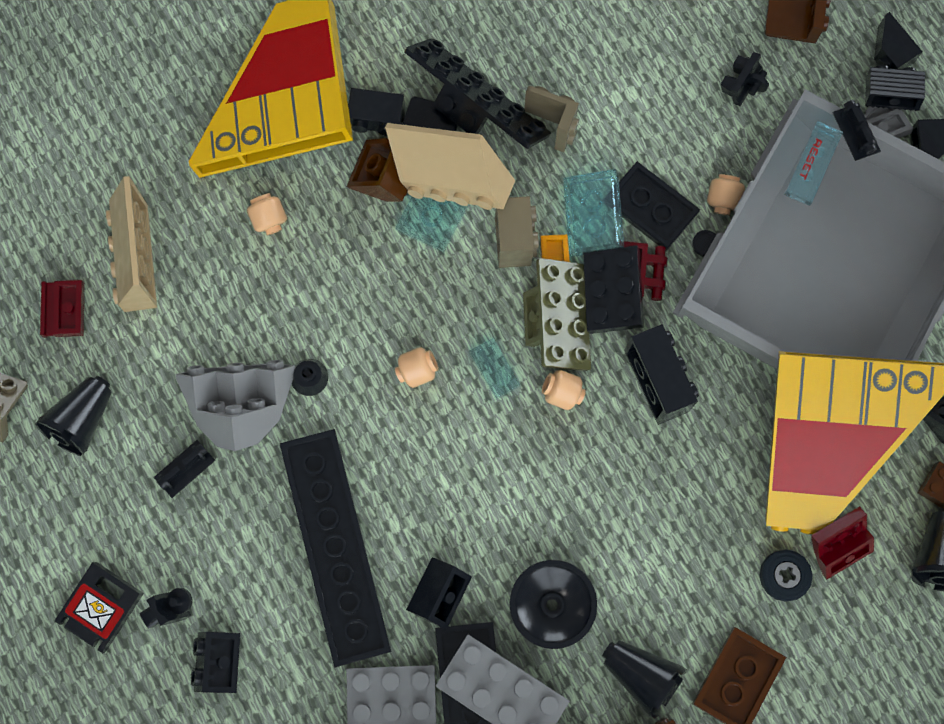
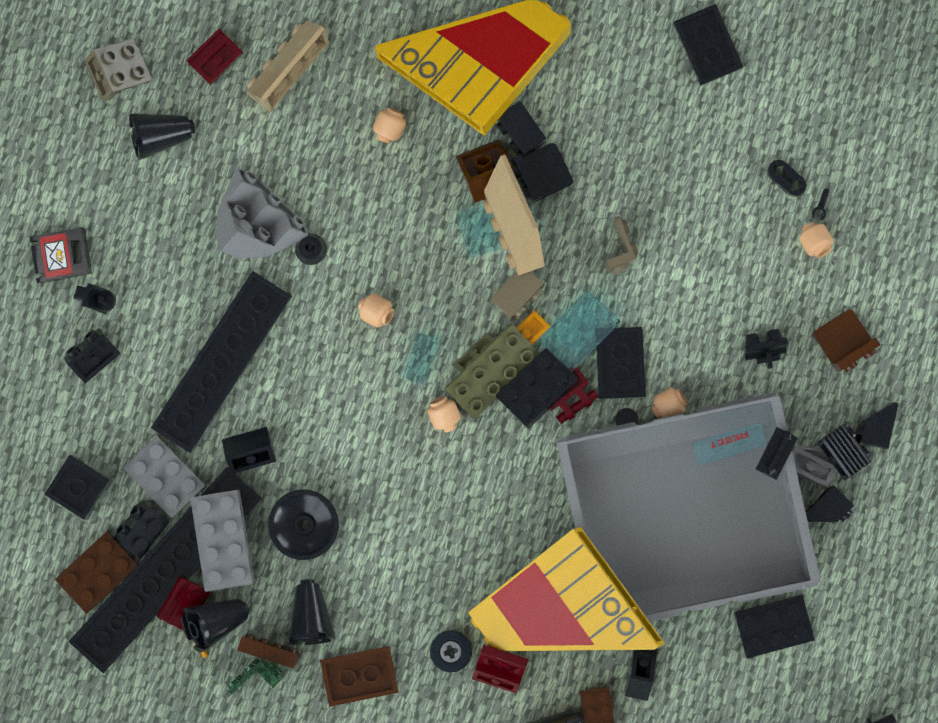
camera: 50 degrees right, 10 degrees up
(184, 469) = (186, 226): black hinge -> none
(471, 99) = (587, 184): black bracket -> none
(661, 374) = (507, 466): black brick -> none

